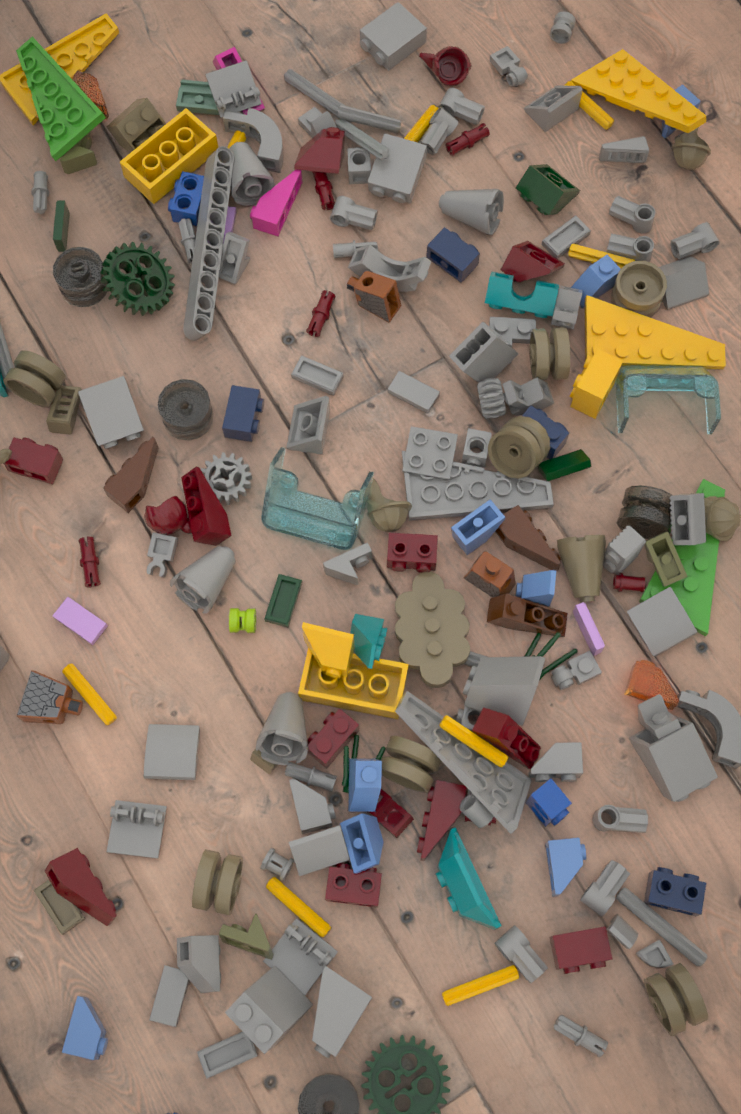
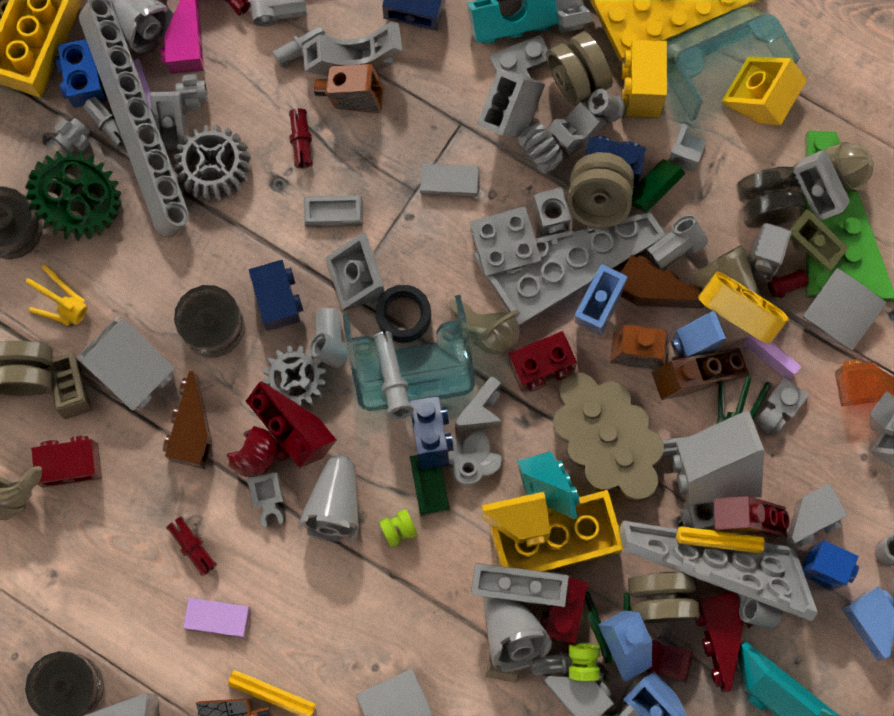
camera: 25 degrees left, 5 degrees up
(94, 357) = (71, 309): none -> yellow plant
(160, 238) = (72, 135): none -> light grey gear
(238, 311) = (198, 180): none -> light grey gear
(259, 463) = (328, 343): none -> light grey piece
(260, 246) = (192, 91): none -> light grey gear
(291, 515) = (394, 386): none -> light grey pin
(300, 562) = (429, 433): none -> dark blue brick
(305, 699) = (519, 584): none -> light grey plate
(325, 594) = (475, 455): none -> light grey plate
(325, 781) = (584, 662): none -> lime wheel
(327, 487) = (403, 291): none -> black tyre
(559, 392) = (603, 103): none -> light grey bush
(566, 513) = (685, 238): none -> light grey piece
(580, 580) = (743, 307): none -> yellow beam
(602, 450) = (687, 150): none -> light grey panel
(686, 434) = (765, 89): none -> yellow slope

